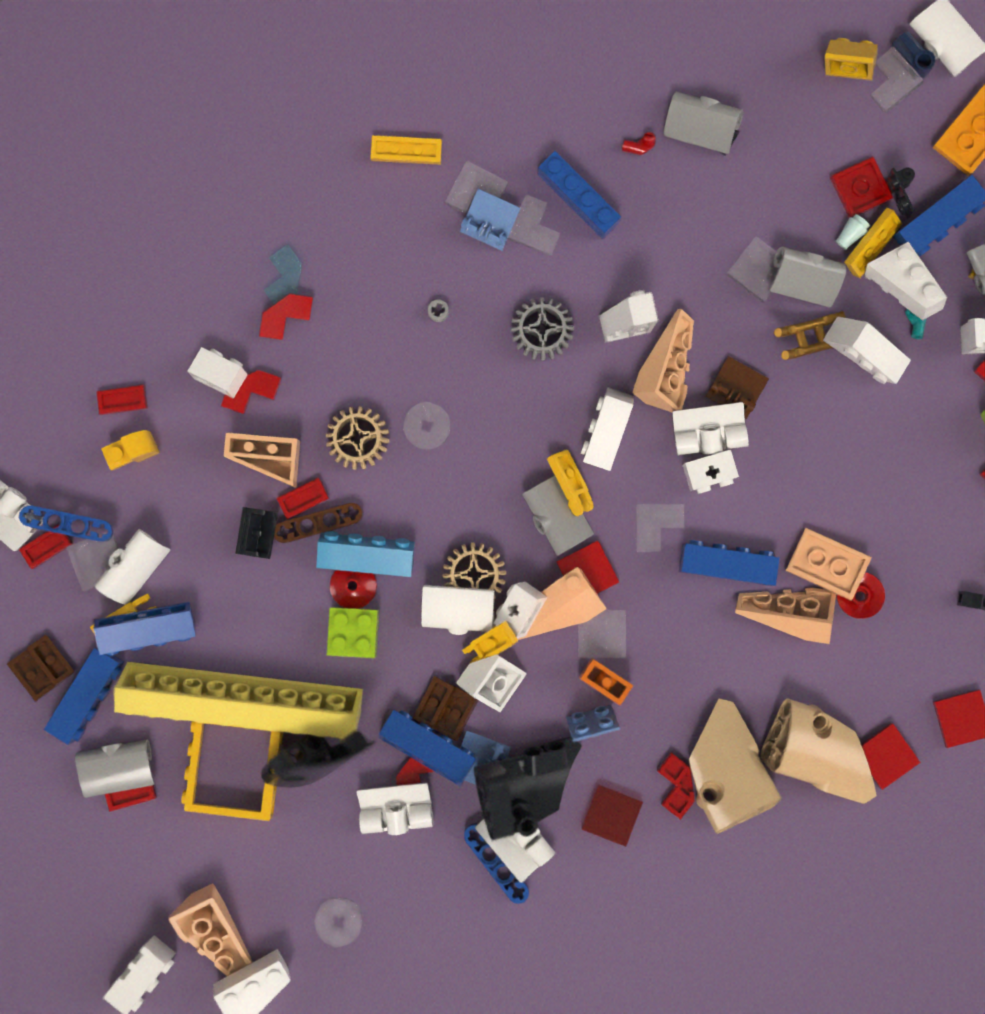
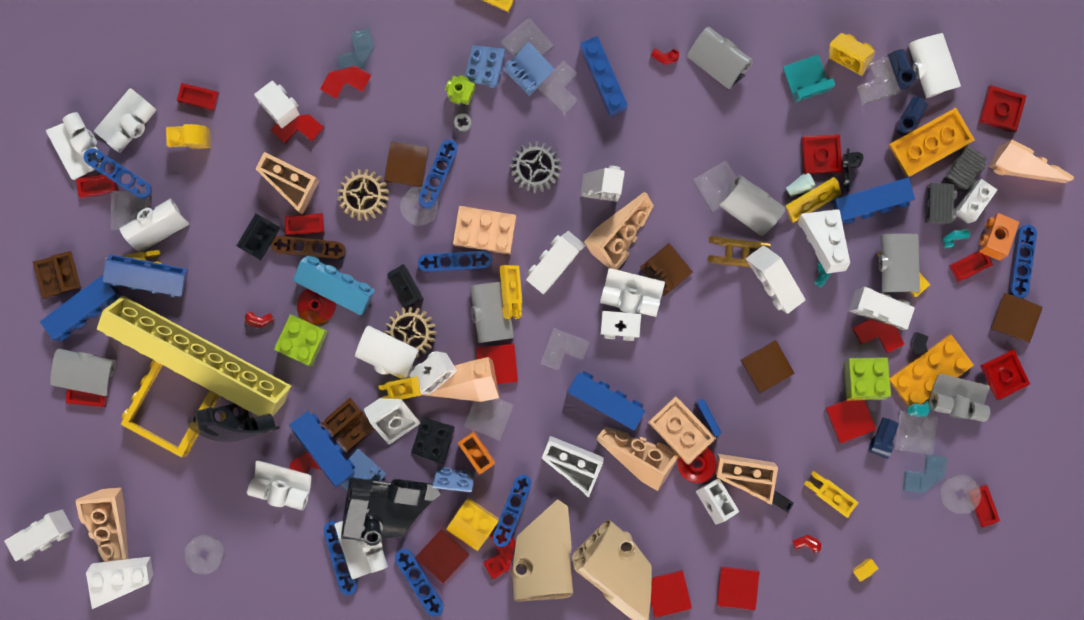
camera: 20 degrees right, 0 degrees up
(49, 460) = (125, 120): none -> white panel
(293, 631) = (258, 322): none -> red arm
(392, 383) = (406, 164): none -> reddish brown slope
(423, 282) = (462, 96): none -> lime brick
(434, 380) = (439, 174): none -> blue beam
(437, 235) = (485, 65): none -> medium blue hinge
(446, 523) = (405, 286): none -> black hinge
(490, 469) = (455, 265): none -> blue beam
(513, 423) = (484, 230): none -> light nougat brick
(549, 687) = (433, 440): none -> black hinge
(599, 853) = (417, 583): none -> blue beam
(632, 765) = (472, 524): none -> yellow slope
(675, 732) = (514, 511): none -> blue beam
(721, 649) = (574, 463): none -> white wedge
(811, 107) = (807, 78): none -> teal bracket
(852, 537) = (708, 417): none -> blue tile
(896, 453) = (767, 366): none -> reddish brown slope
(901, 629) = (717, 501): none -> white brick
(928, 584) = (748, 474): none -> light nougat wedge
(945, 103) = (911, 115): none -> dark blue piece

